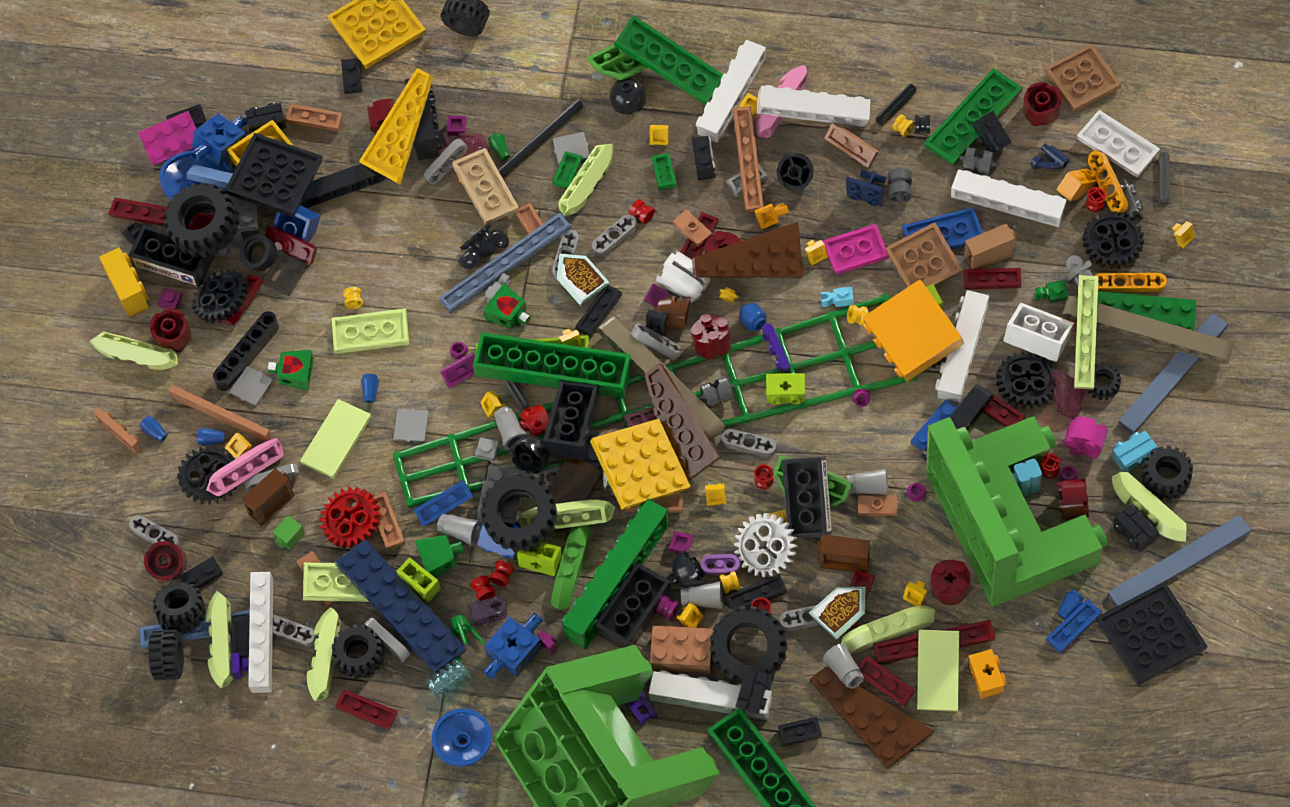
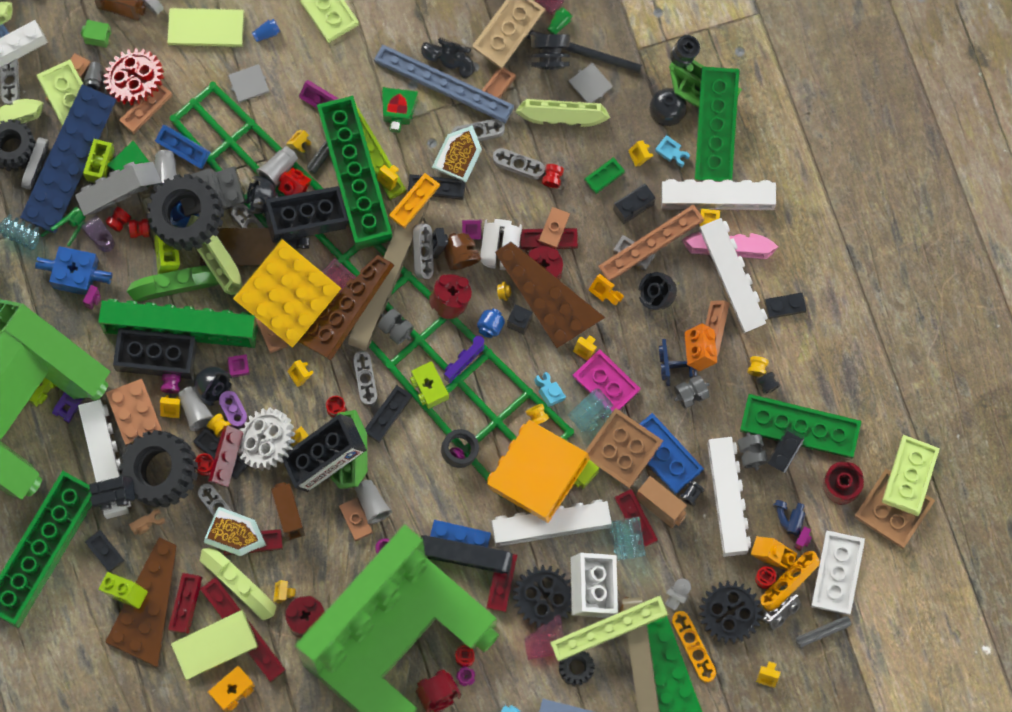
camera: 55 degrees right, 10 degrees up
(328, 553) = (93, 76): none -> dark grey cone
(456, 571) = (117, 187): none -> light grey wedge
(458, 346) = (338, 82): magenta plate -> none
(487, 449) = (251, 157): light grey plate -> none
(490, 292) = (423, 91): light grey plate -> none
(527, 160) = (550, 51): none -> black wheel
(567, 170) = (564, 91): green plate -> none
(593, 48) = (685, 51): none -> black wheel
(609, 324) = (414, 200): none -> light orange plate
(668, 110) = (670, 149): none -> medium azure plate
(761, 292) = (519, 319): none -> black brick
(764, 586) = (225, 456): none -> plate
(791, 435) = (388, 413): none -> black plate
(792, 688) = (142, 524): none -> medium nougat plate
(843, 665) = (180, 560): light grey plant -> none
(848, 725) = (123, 590): none -> lime brick
(857, 376) = (449, 458): none -> black tyre
(858, 81) = (785, 305): none -> black plate
(864, 158) = (700, 347): none -> orange brick
(876, 269) = (591, 410): none -> clear light blue brick
(896, 104) = (779, 349): black axle -> none
(989, 221) = (692, 493): none -> black bush
(1008, 288) = (628, 538): none -> clear light blue brick
(1028, 477) = (438, 639): medium azure brick -> none
(1055, 291) = (650, 582): green plate -> none
(1060, 51) = (910, 475): none -> yellowish green tile
(1076, 156) = (803, 539): none -> magenta plate
(1085, 437) = (504, 675): dark pink brick -> none

